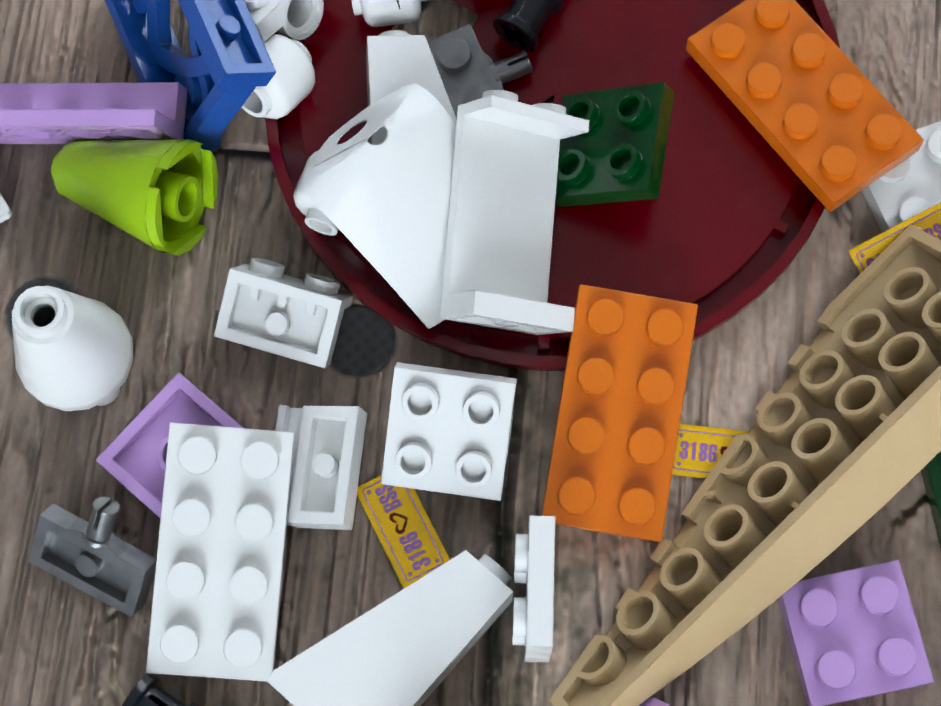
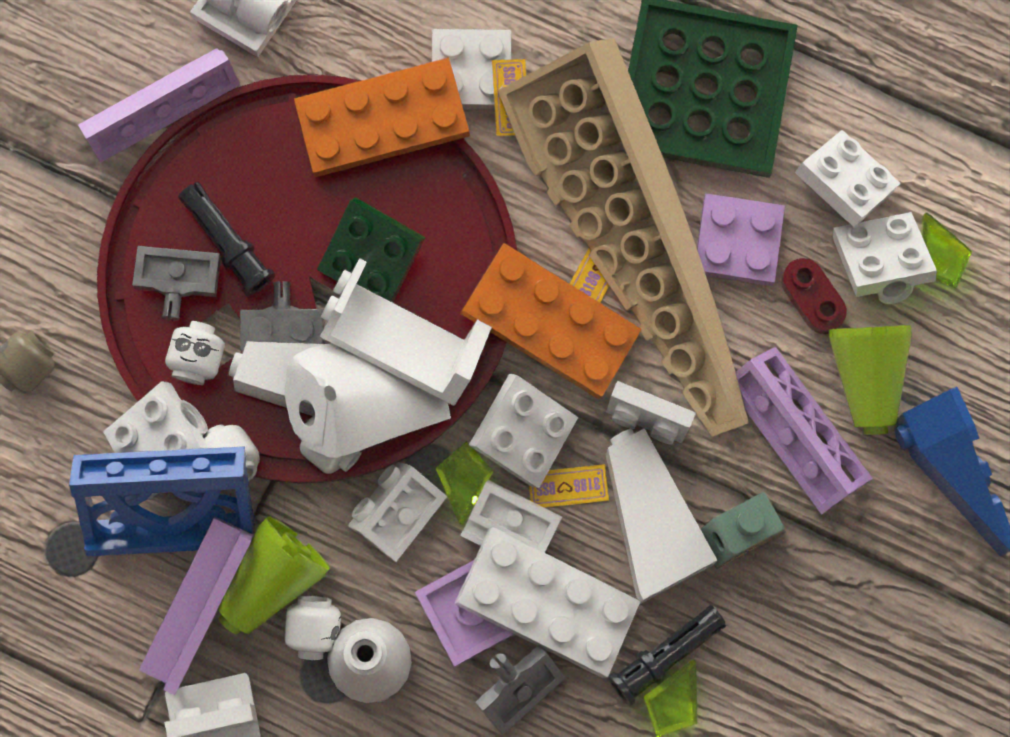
camera: 75 degrees left, 5 degrees up
(92, 262) = (312, 626): none -> white head
(355, 379) = (463, 479): none -> clear neon green piece

